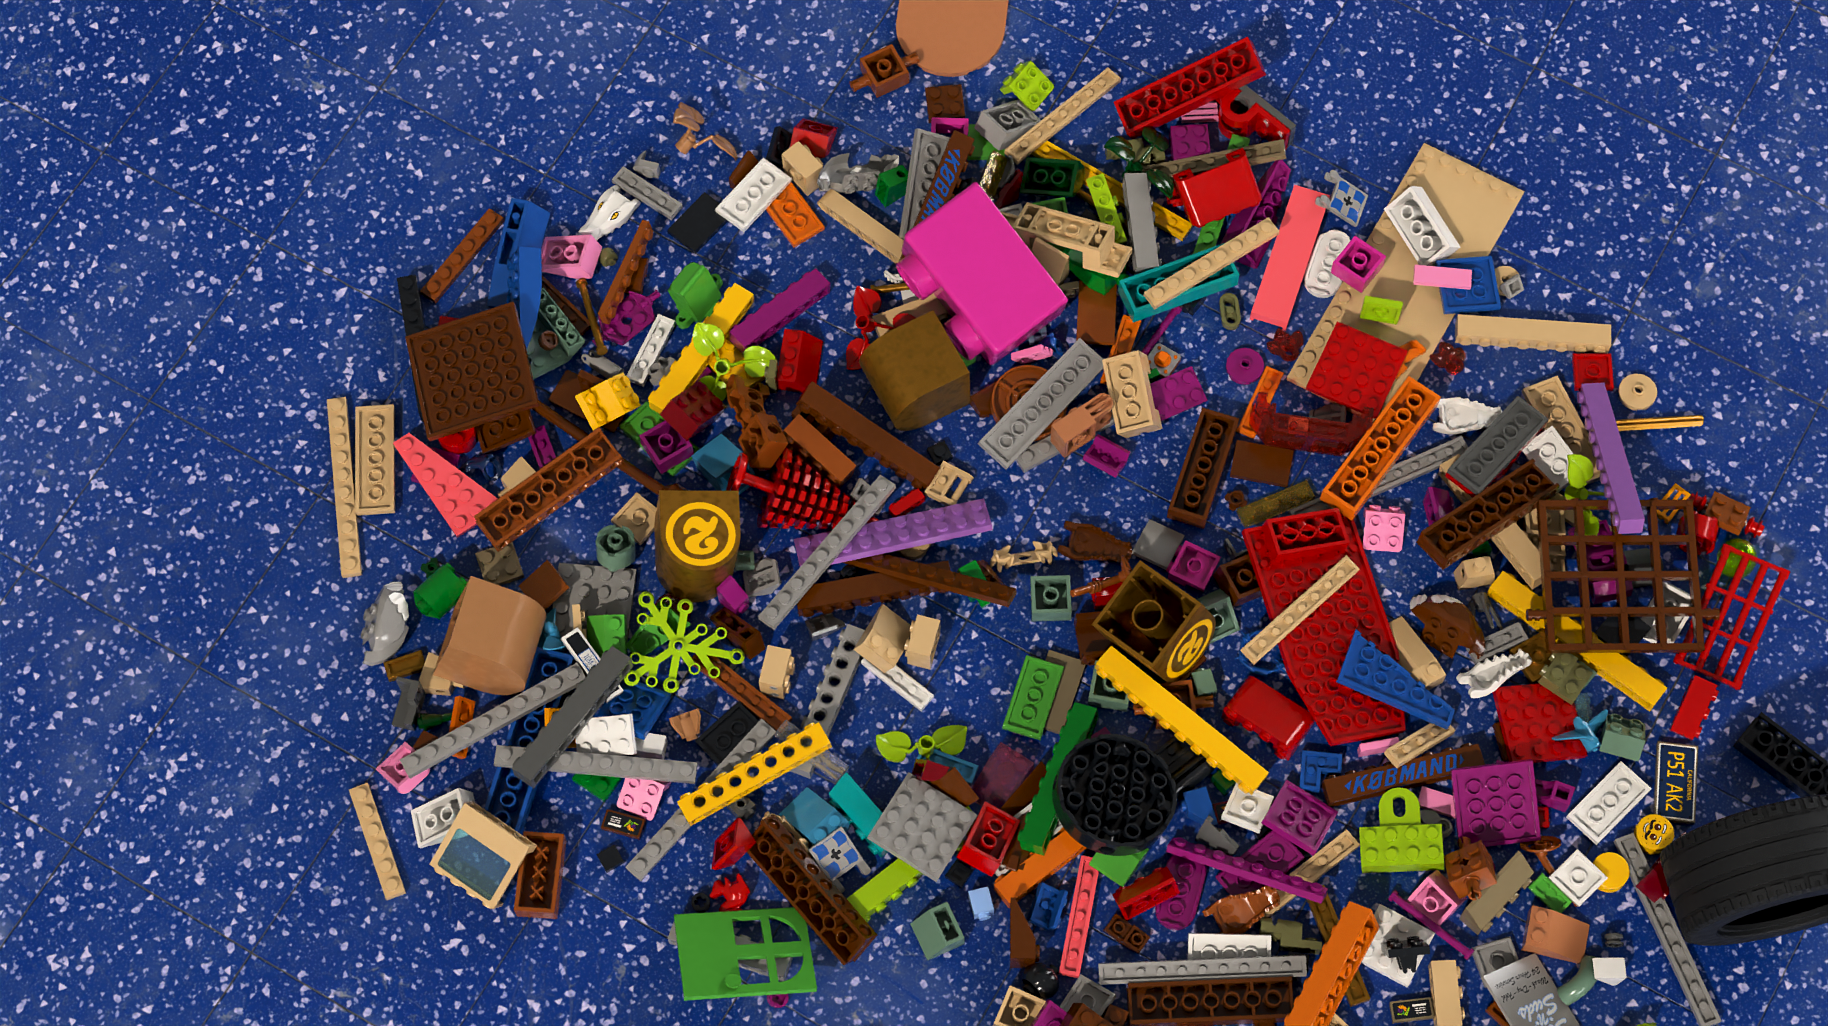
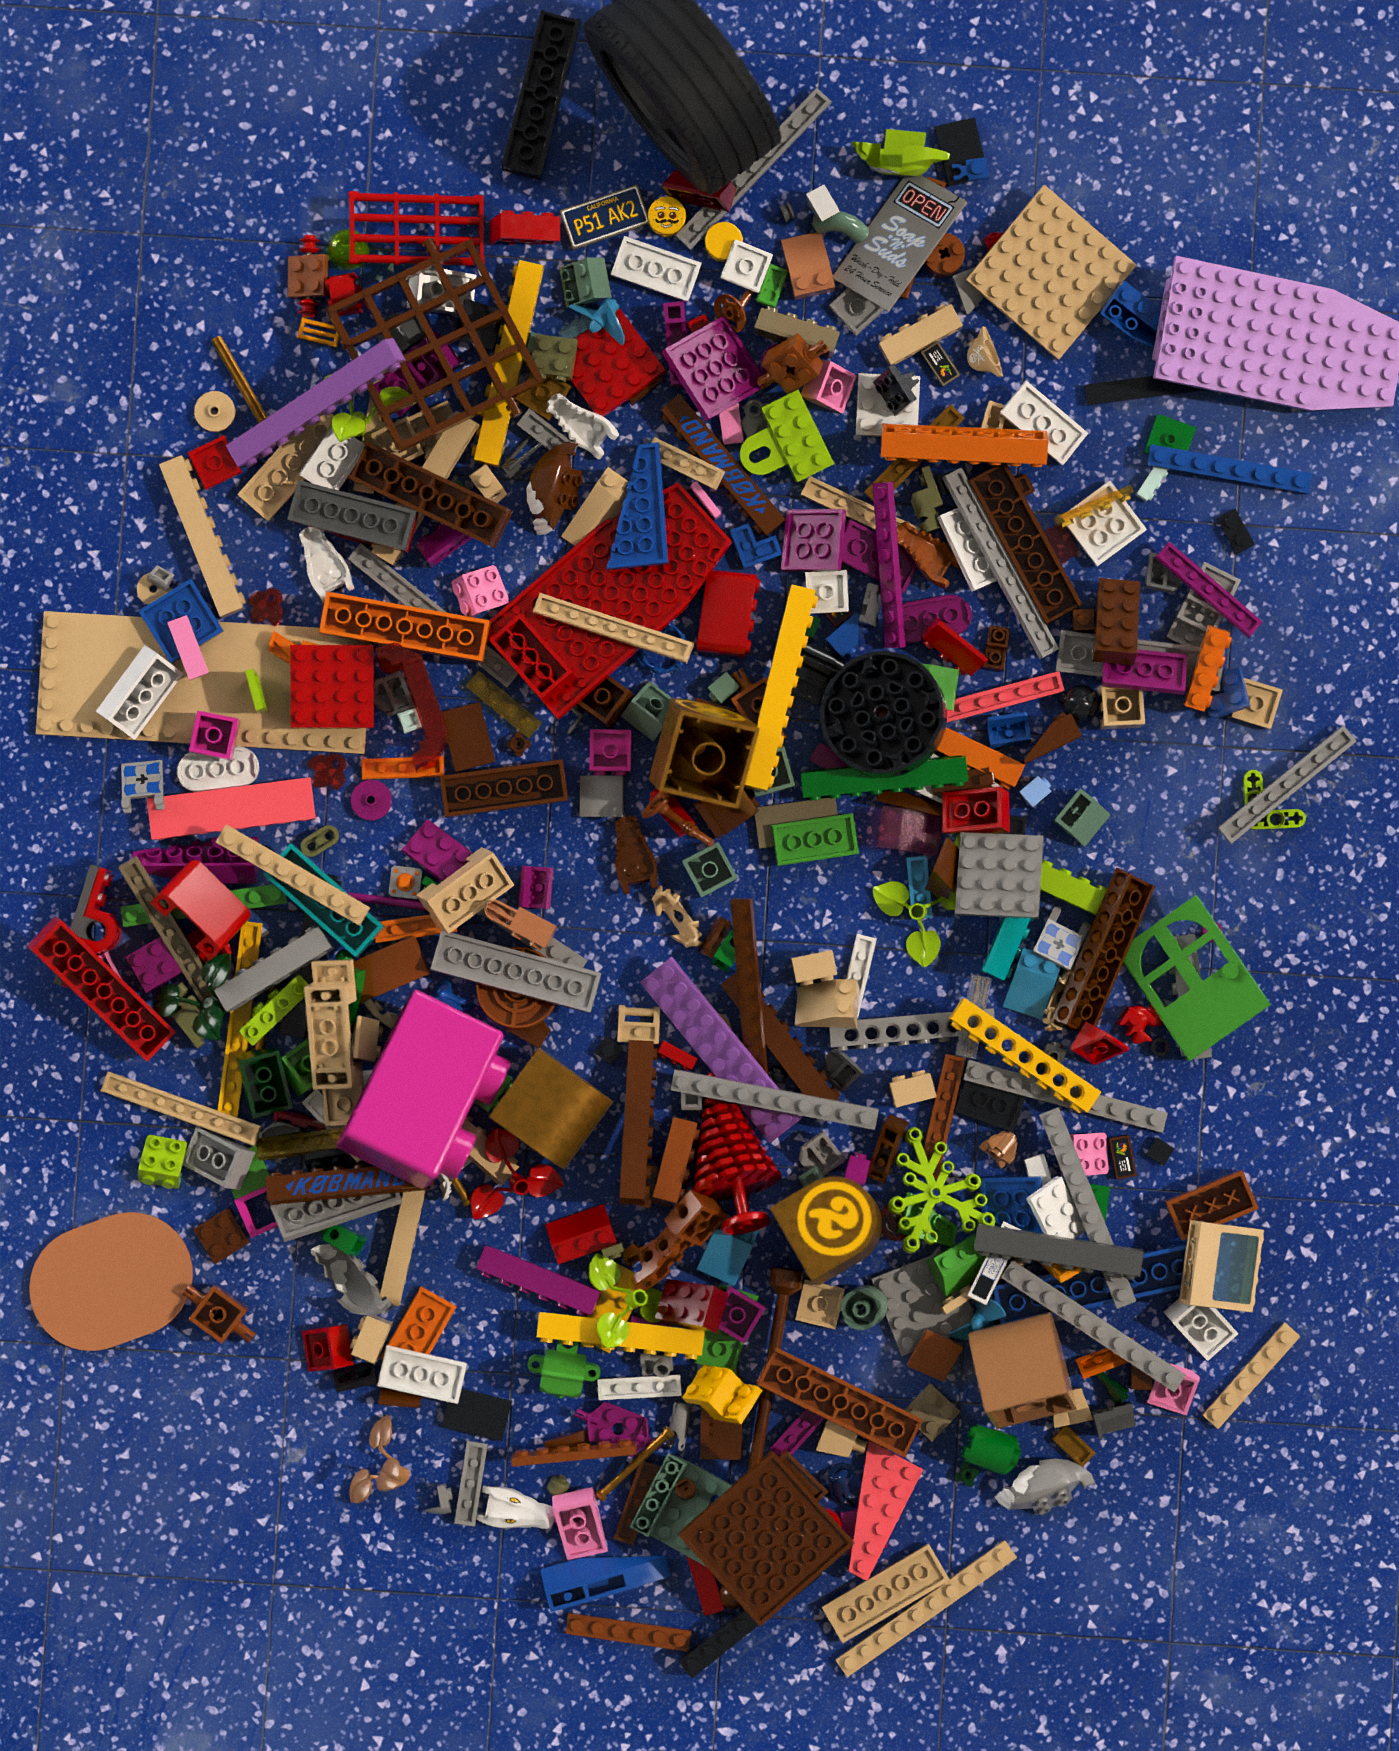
camera: 115 degrees left, 20 degrees up
(525, 287) = (648, 1538): blue wedge -> none
(928, 770) = (944, 895): dark red brick -> none
(1031, 354) = (462, 1000): bright pink tile -> none
(1431, 925) = (853, 379): magenta bar -> none

